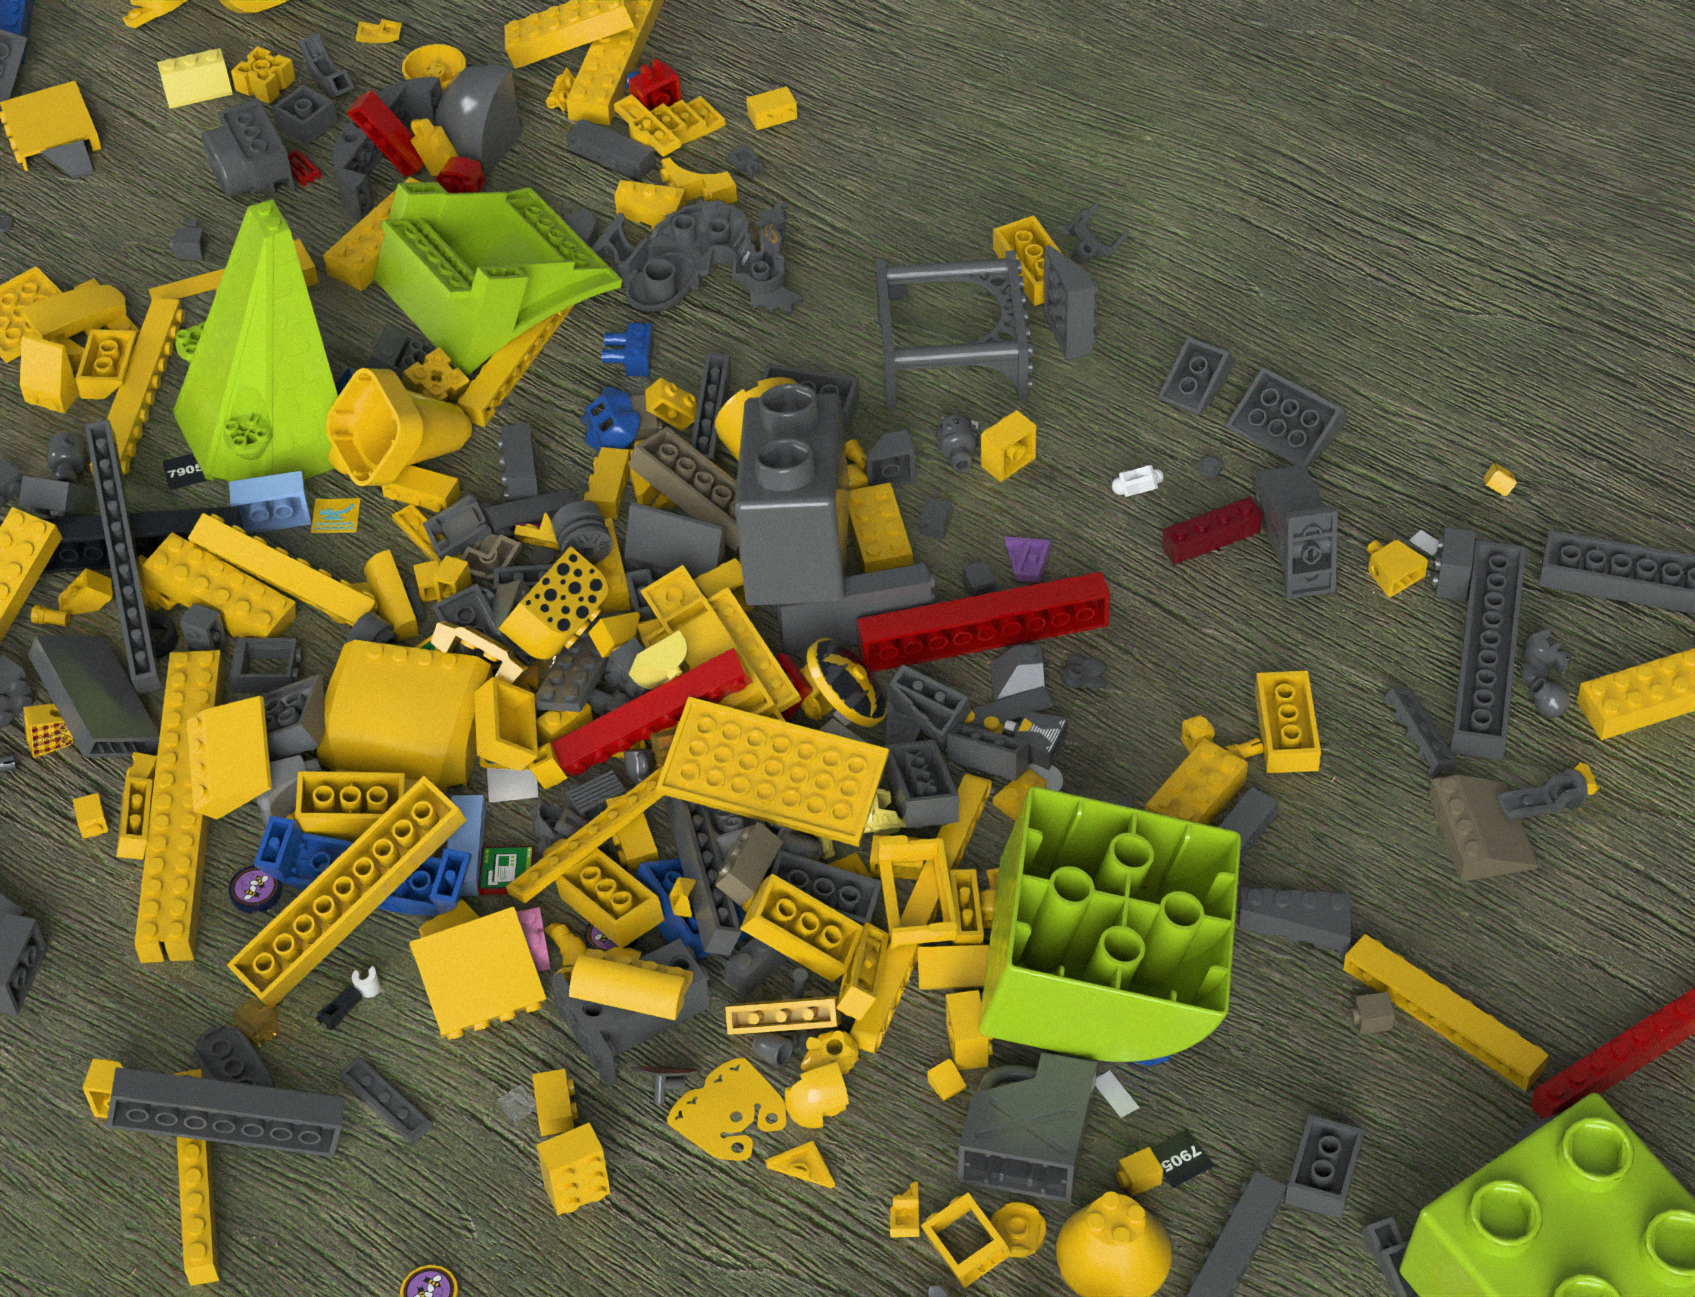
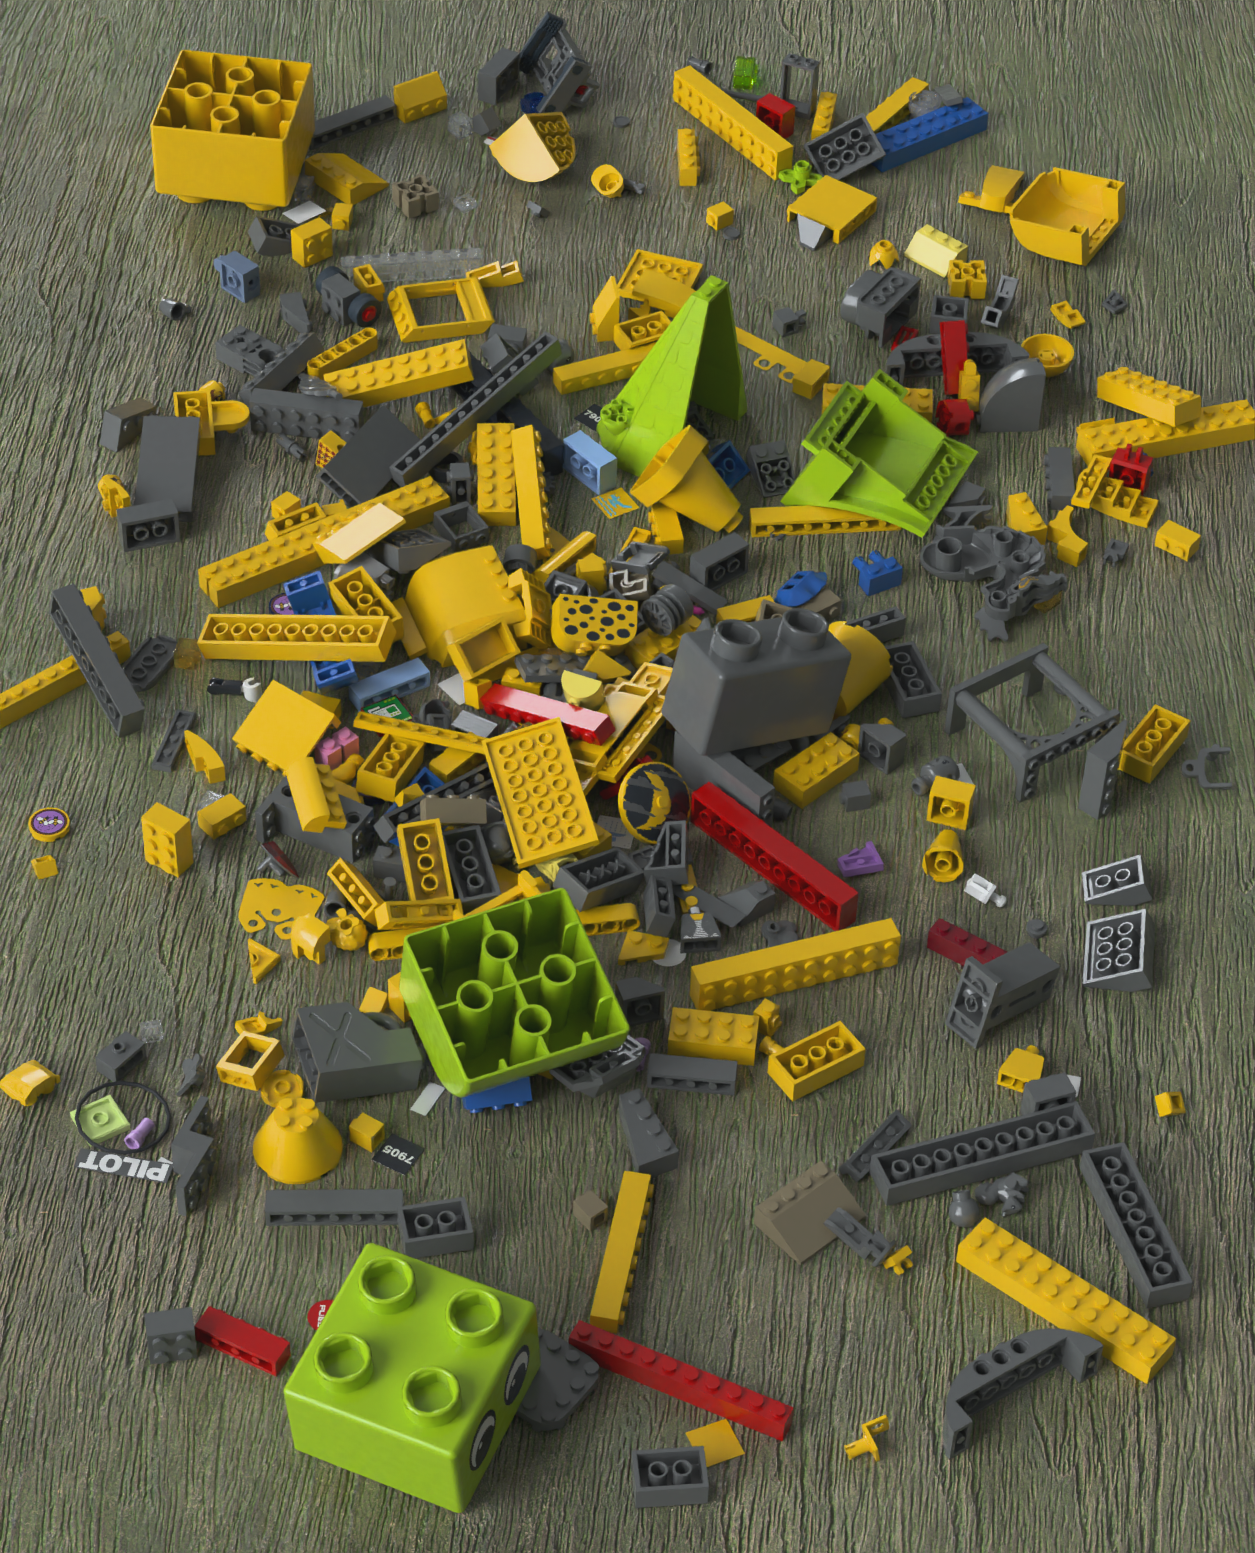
camera: 55 degrees right, 5 degrees down
(157, 118) = (885, 252): none -> yellow piece
(436, 377) = (759, 488): yellow brick -> none
(442, 1078) = (204, 757): none -> yellow slope
(671, 404) = (837, 607): yellow brick -> none
(978, 579) = (816, 842): dark grey brick -> none
(1073, 486) = (944, 857): none -> yellow cone
(1148, 679) = (794, 965): none -> yellow brick

